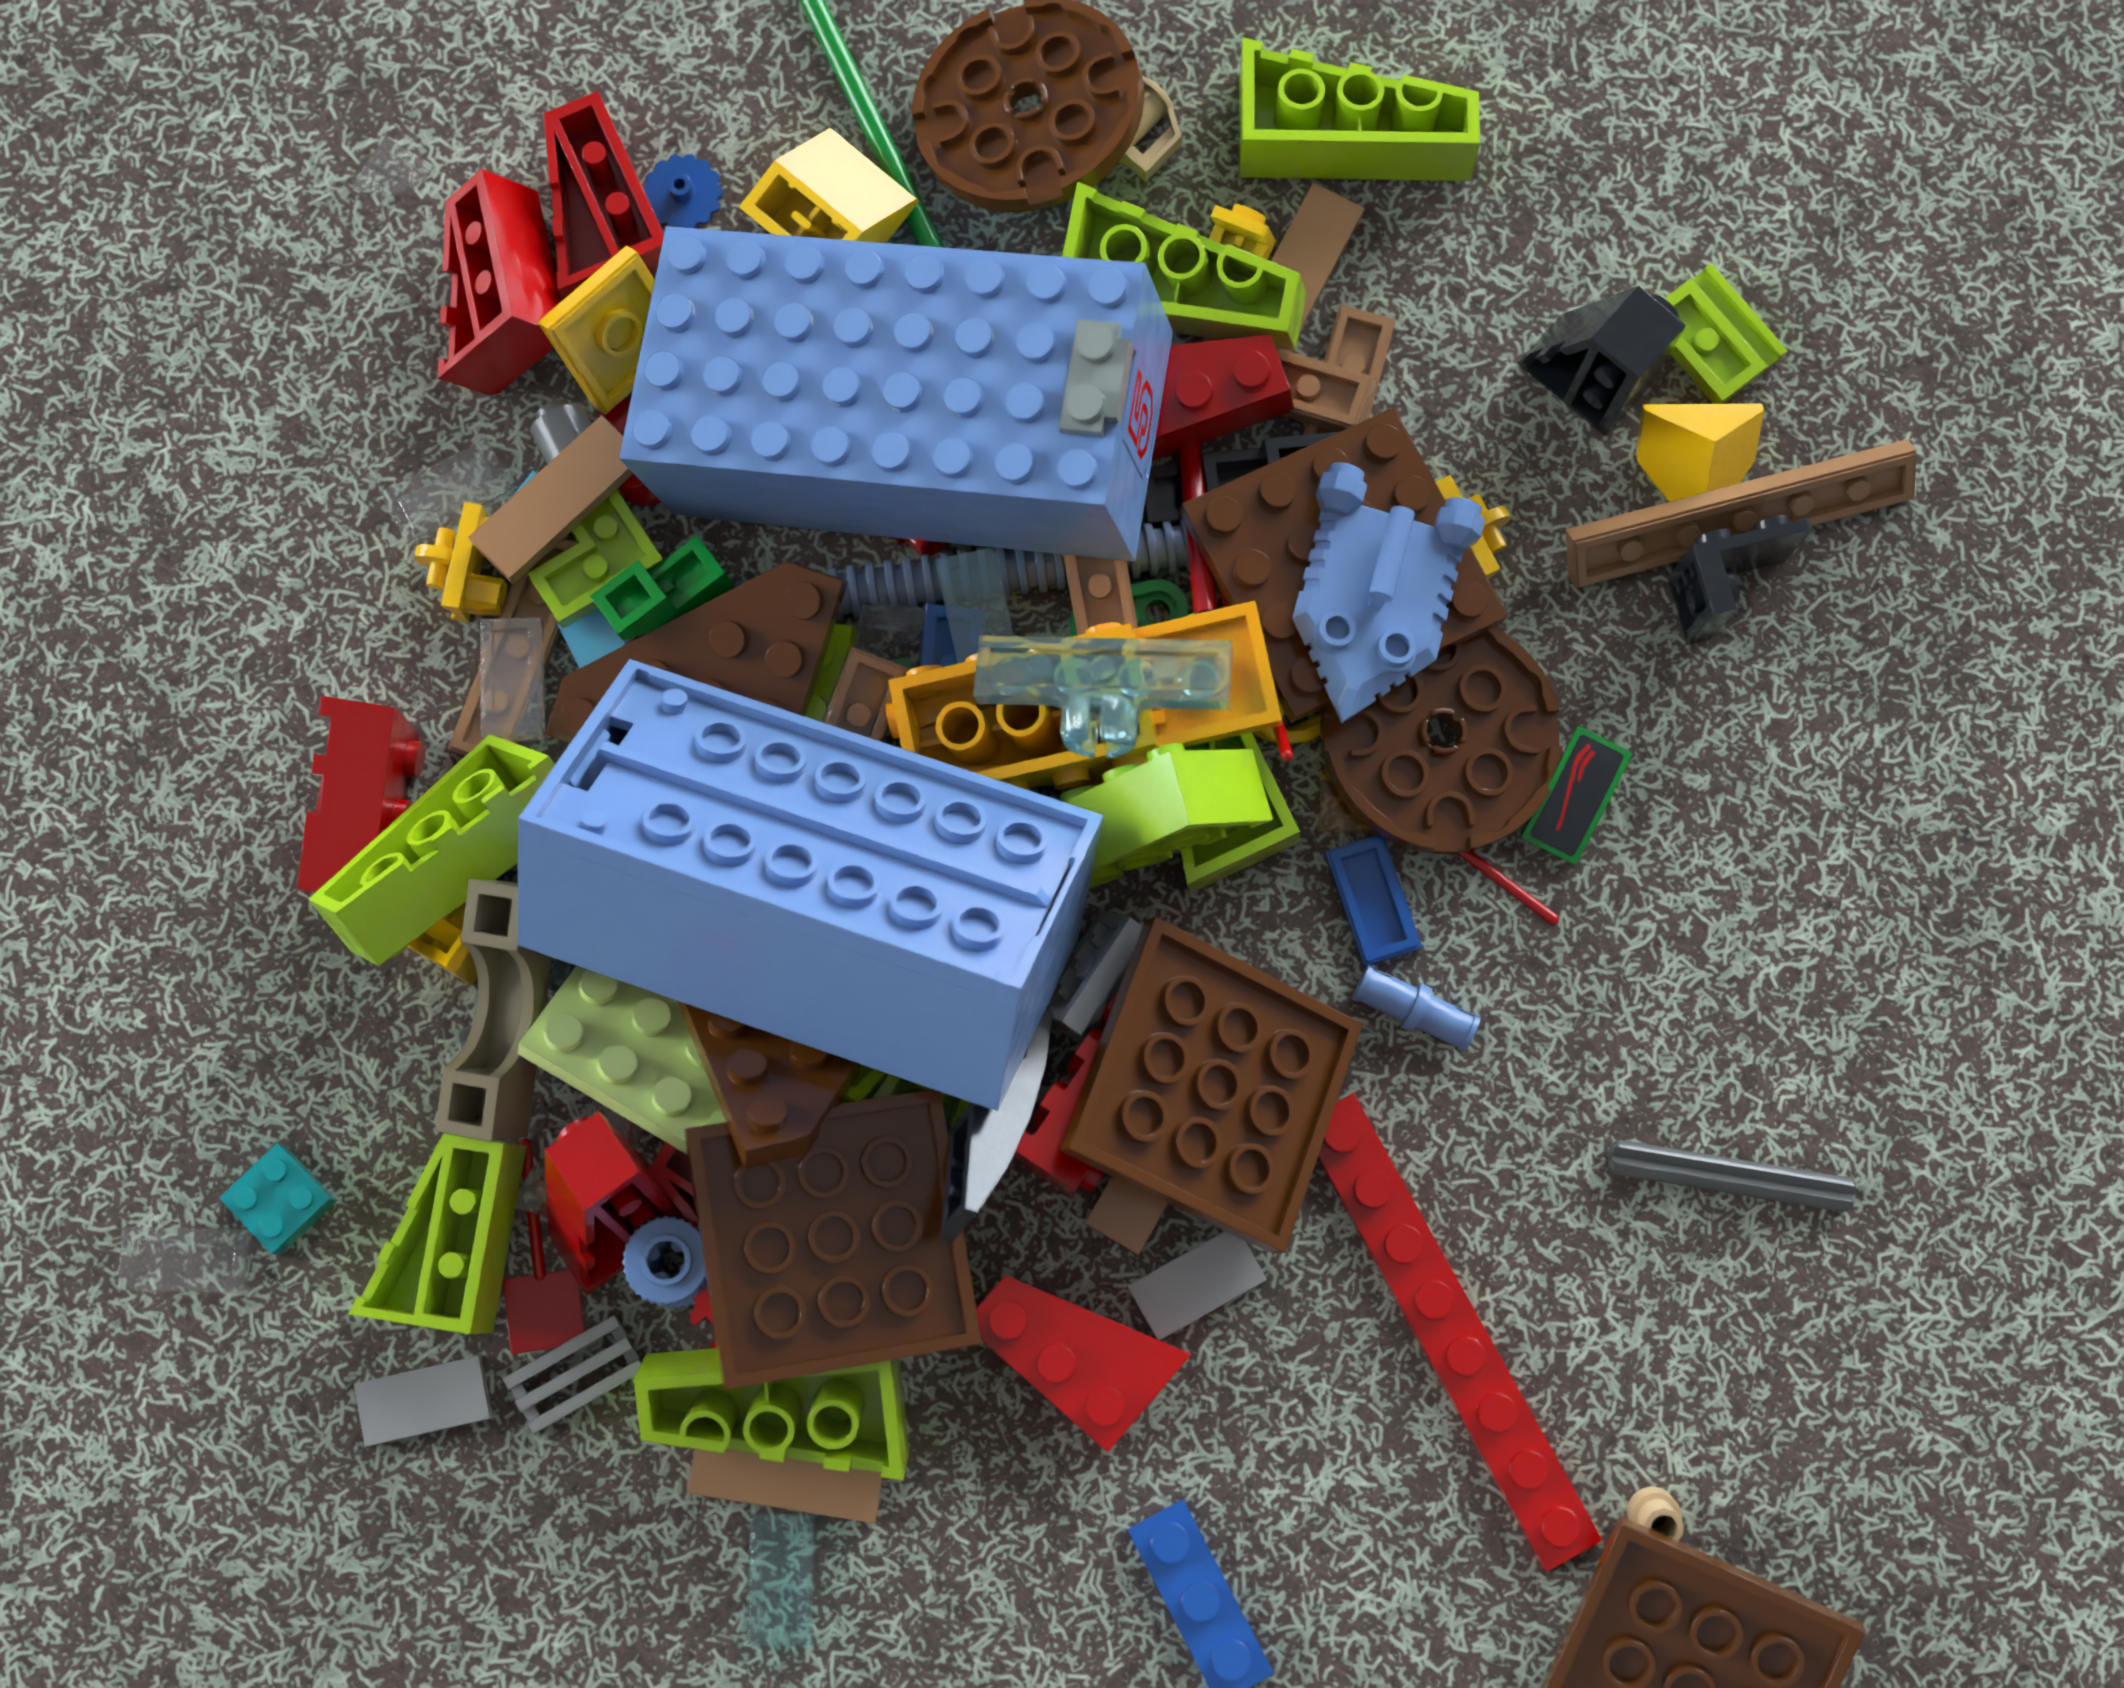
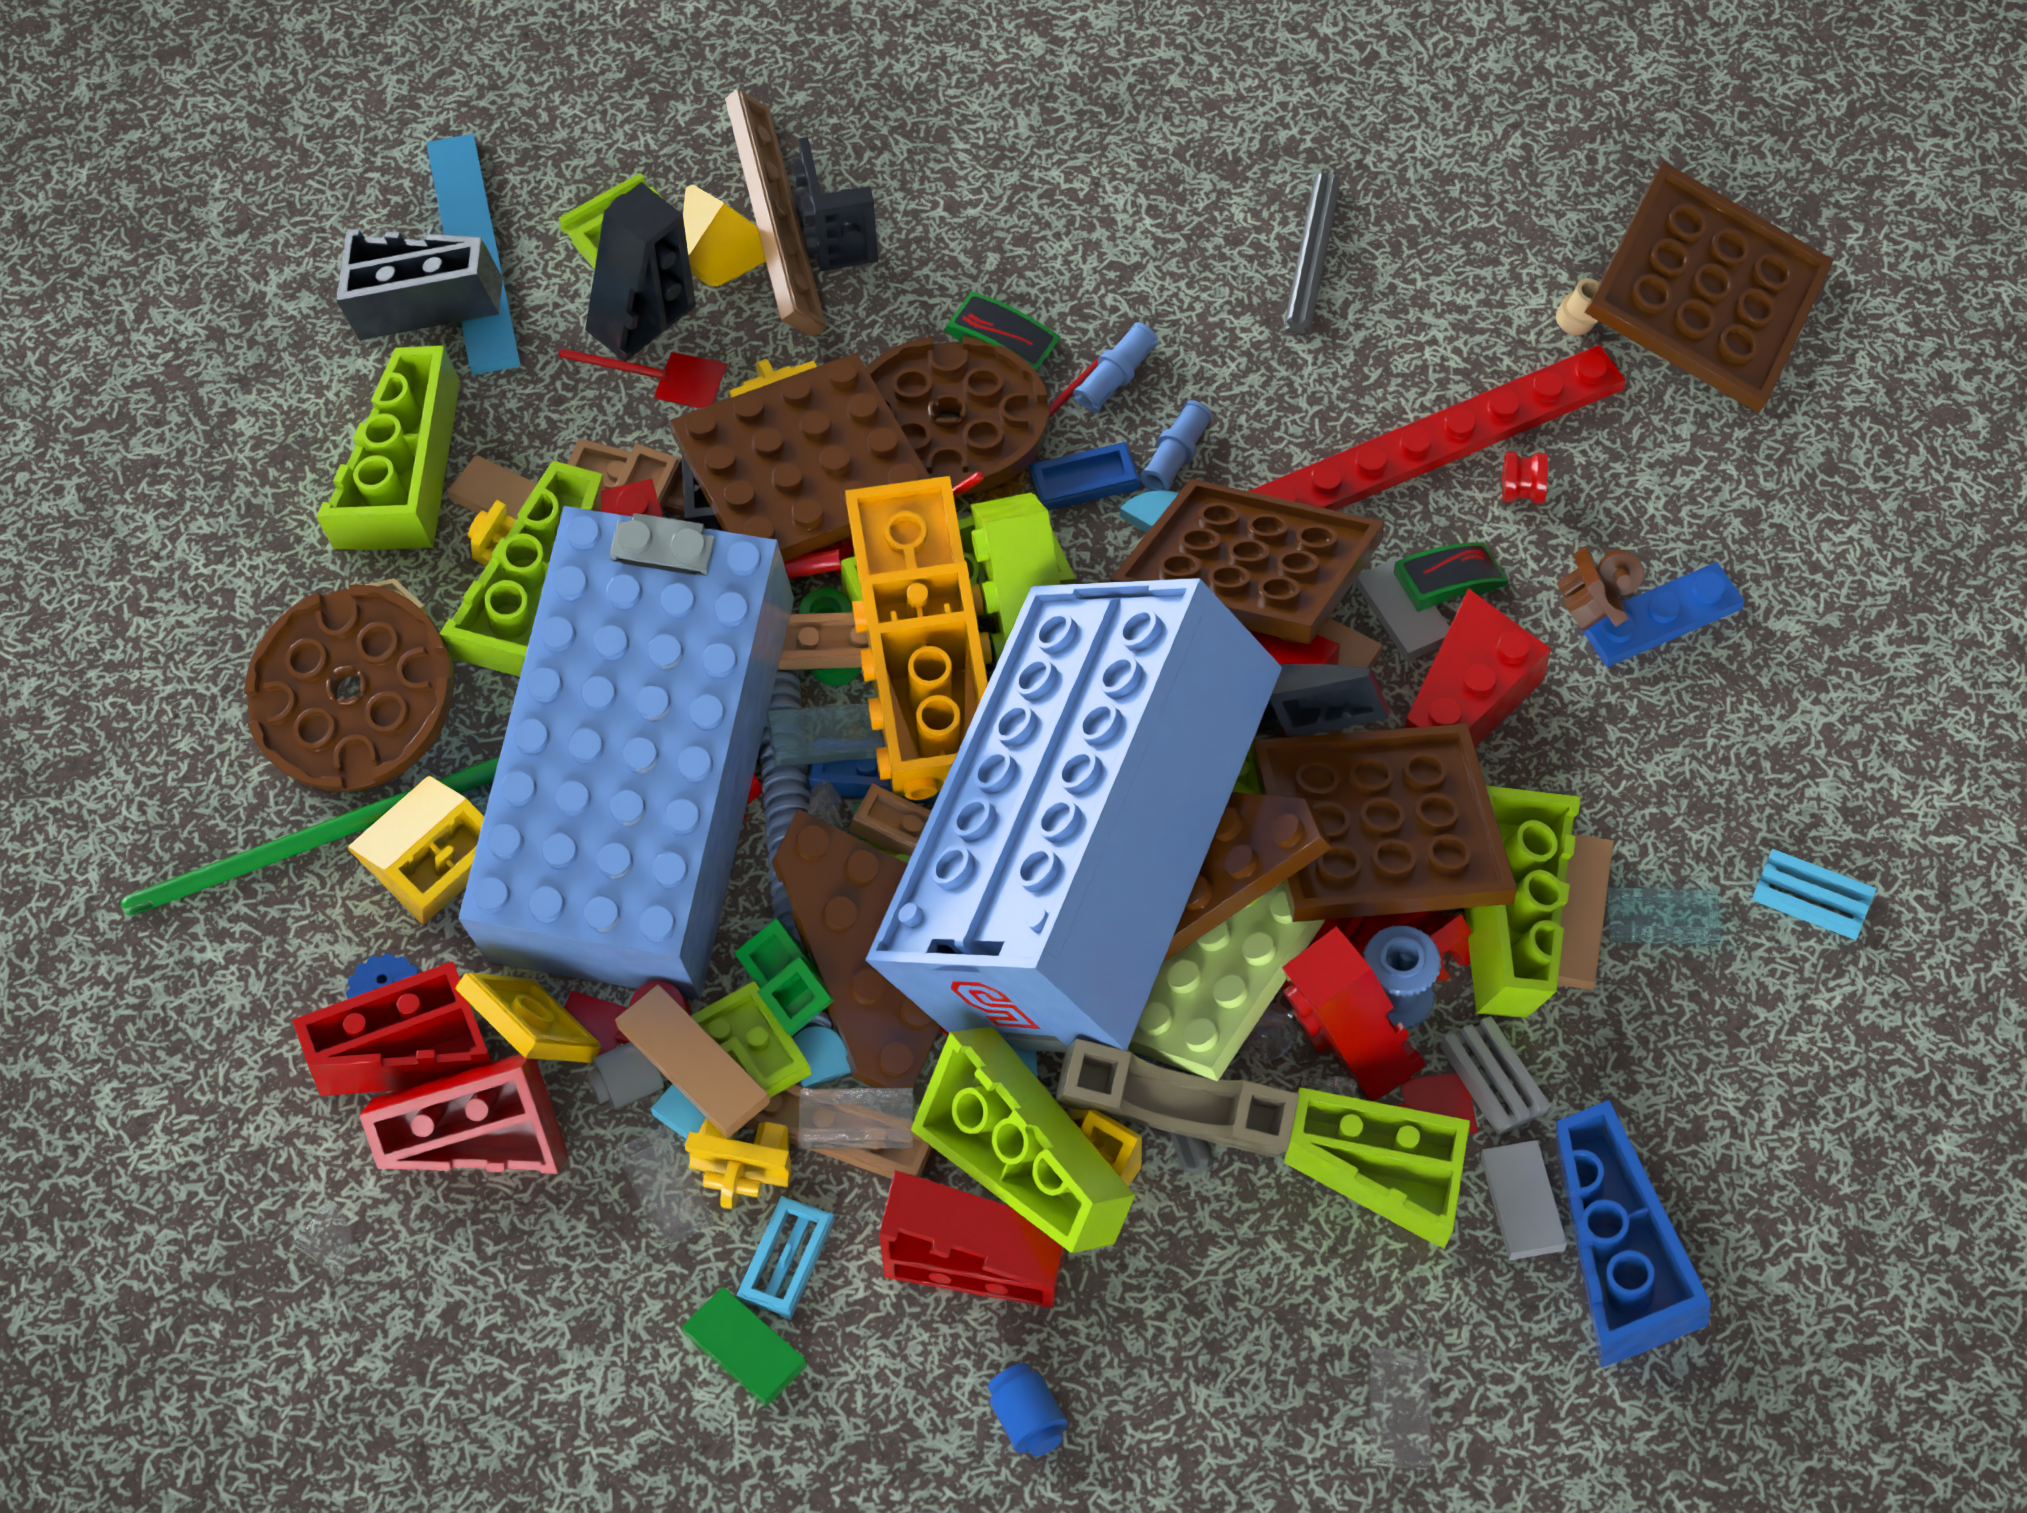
camera: 85 degrees left, 20 degrees down
(182, 871) = (1027, 1410): none -> blue brick
(268, 586) = (744, 1346): none -> green tile
(278, 1199) = (1342, 1322): teal piece -> none
(350, 1507) = (1634, 1263): none -> blue wedge
(414, 638) = (768, 1300): none -> medium azure tile
(1103, 681) = (915, 587): clear light blue plate -> none
(1212, 1523) = (1596, 591): none -> reddish brown hips
(1243, 1340) = (1448, 573): none -> slope
(1326, 980) = (1146, 508): none -> medium azure tile
(1377, 588) = (831, 423): medium blue shield -> none
(1386, 1435) = (1524, 477): none -> red wheel
(1492, 435) = (683, 381): none -> red piece
(1531, 932) = (1116, 367): none -> medium blue pin
(1586, 102) = (415, 284): none -> black wedge
(1663, 174) = (466, 212): none -> dark azure tile

